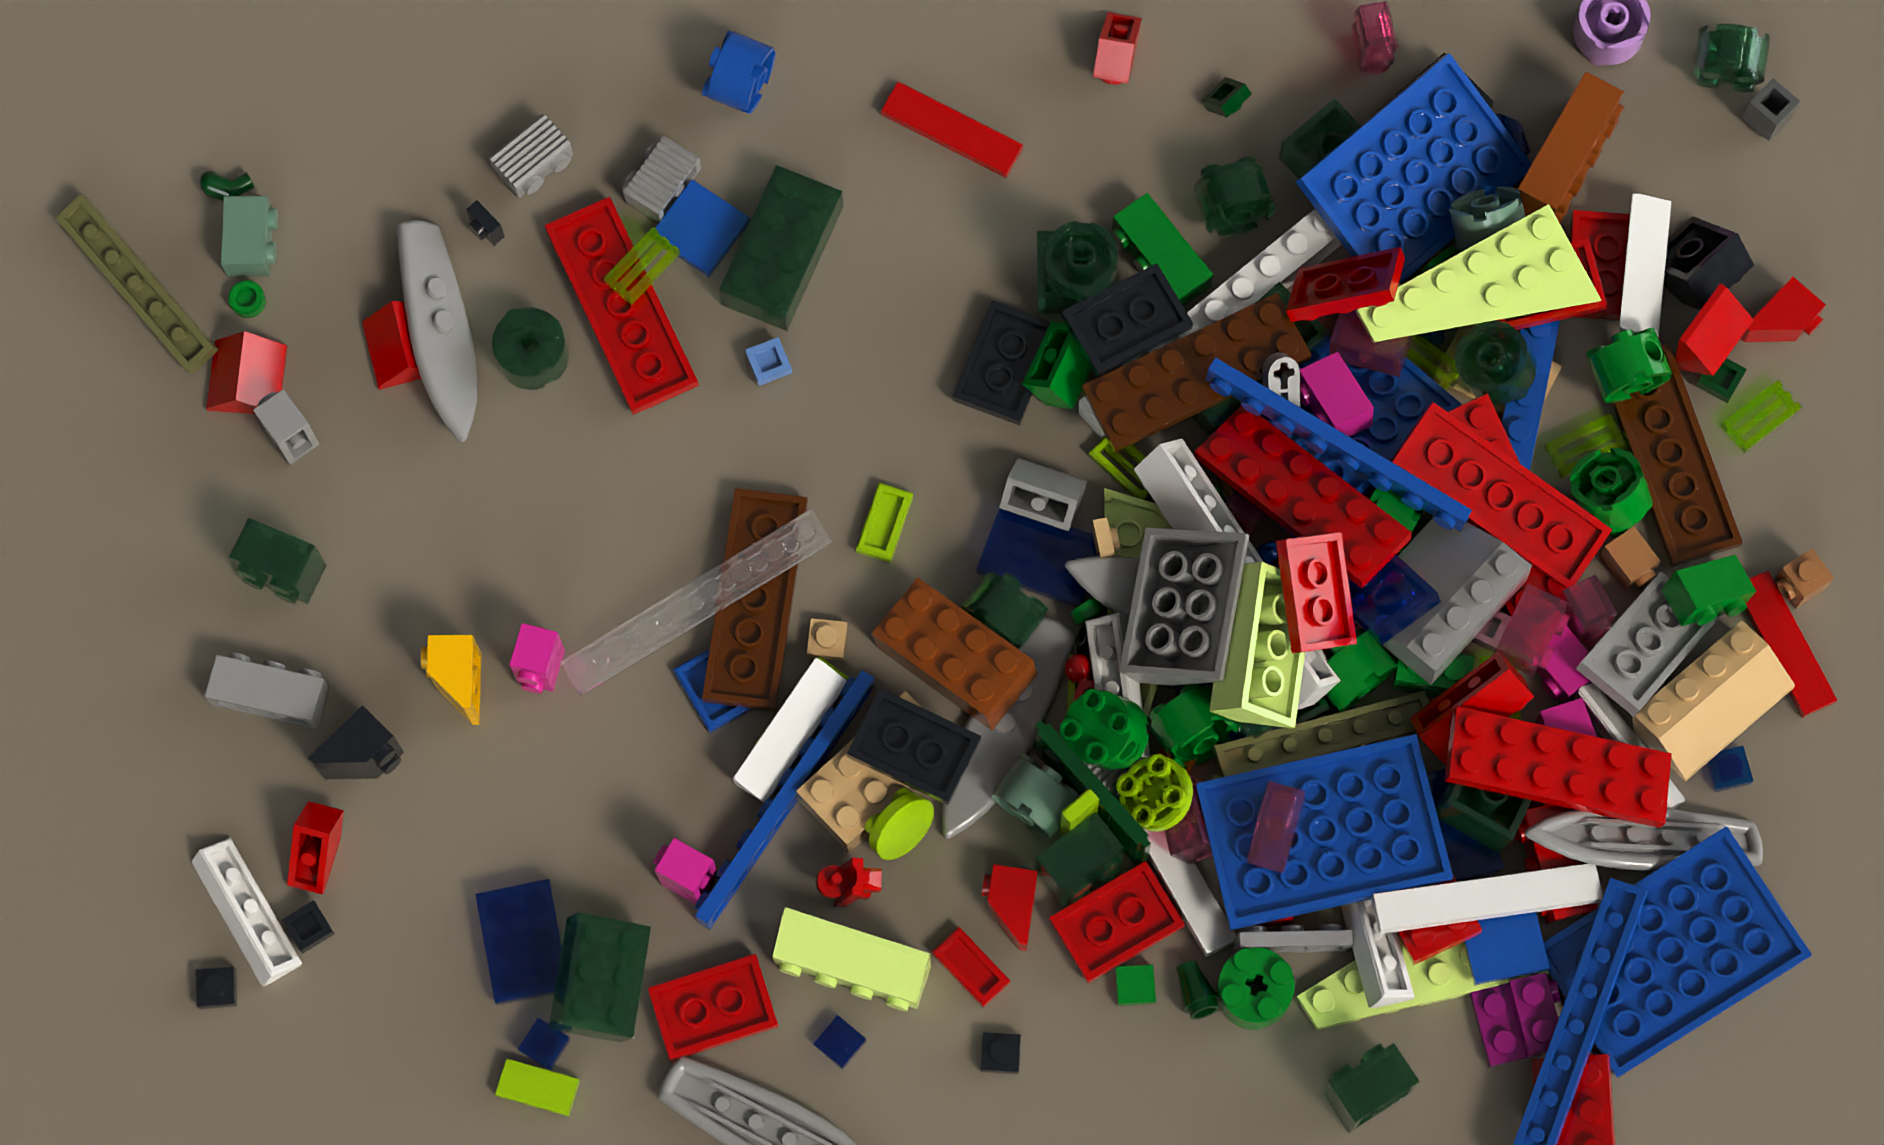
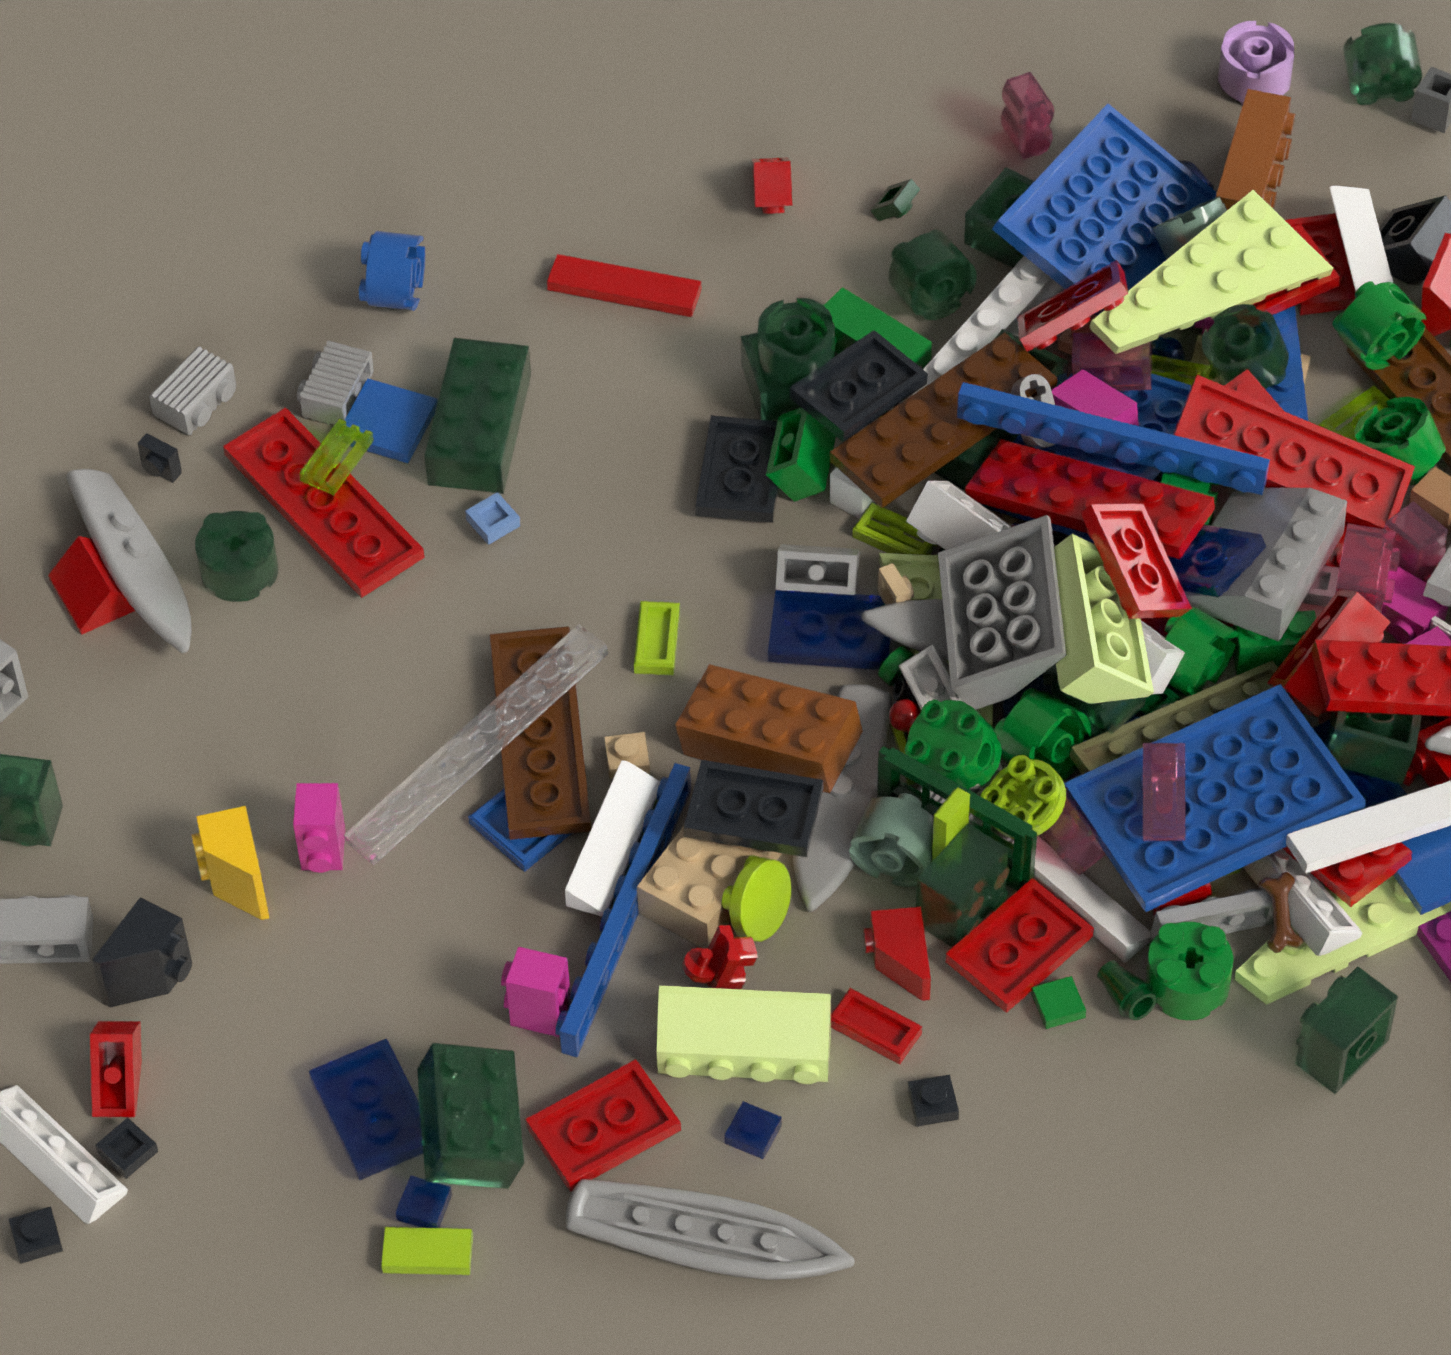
camera: 15 degrees left, 20 degrees down
(1005, 608) = (812, 665): clear green brick -> none
(1353, 938) = (1283, 932): none -> reddish brown piece

